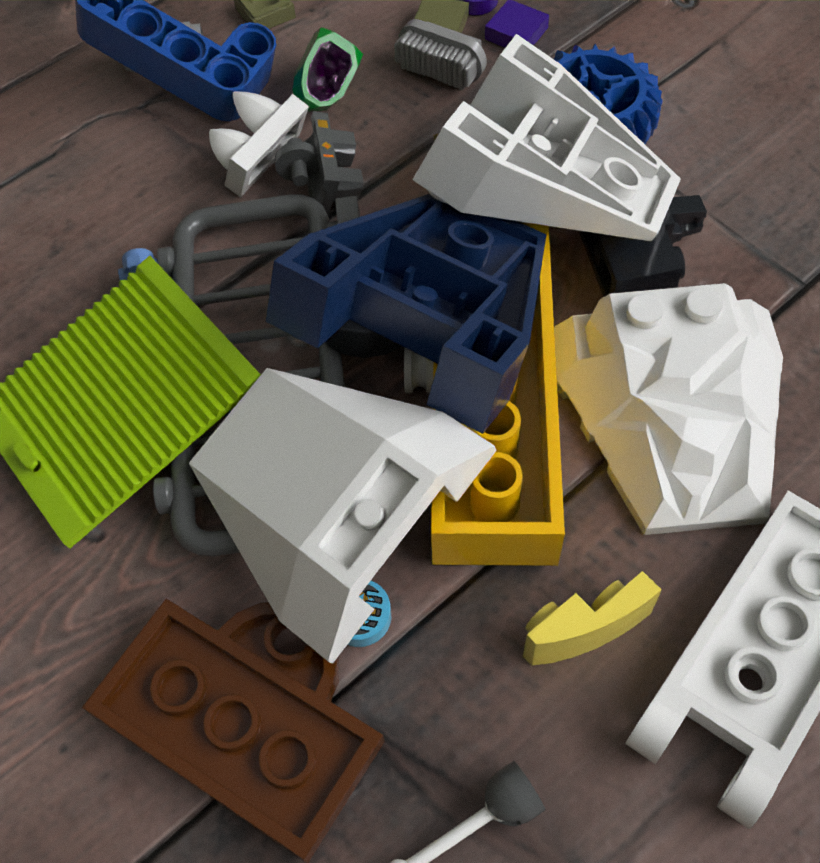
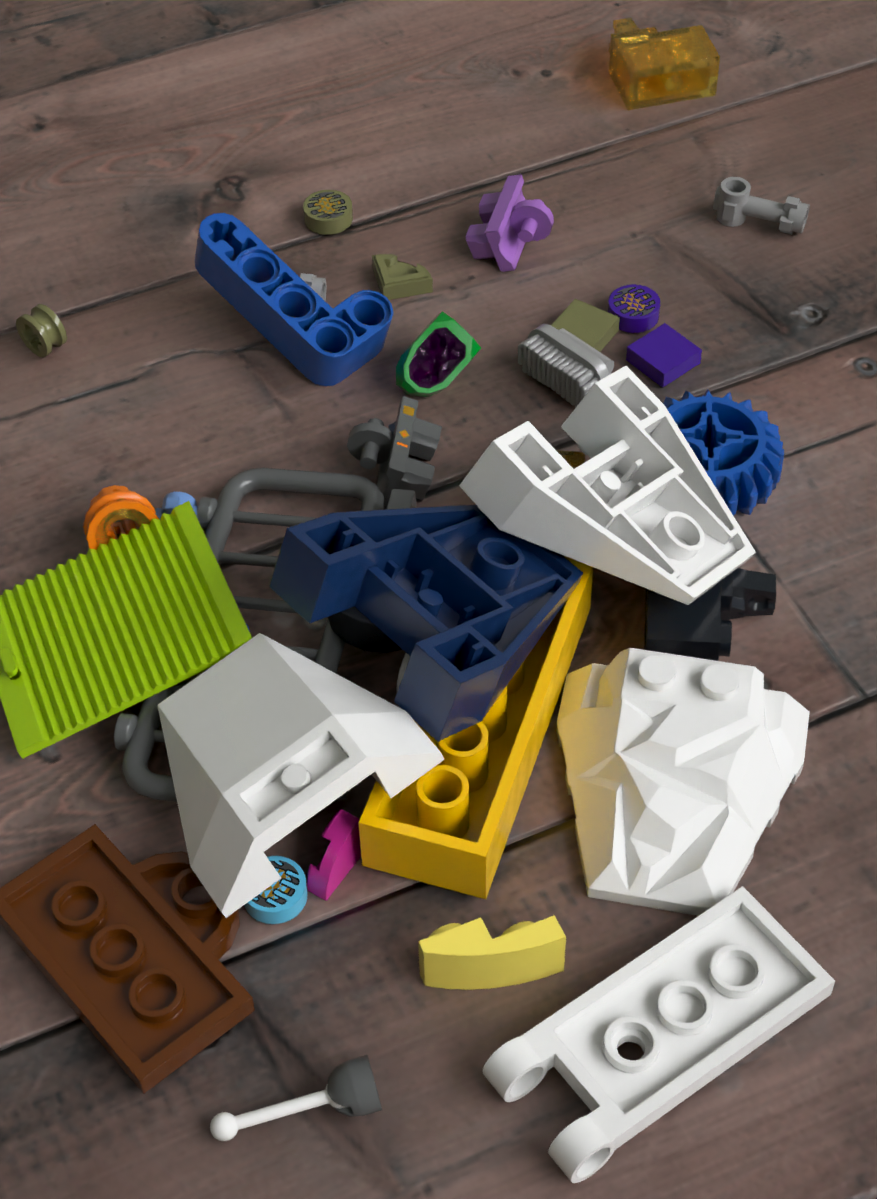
camera: 15 degrees right, 10 degrees down
(82, 282) = (111, 505): none -> orange piece
(251, 156) = (327, 427): white tile -> none
(407, 566) = (339, 857): none -> dark pink tile

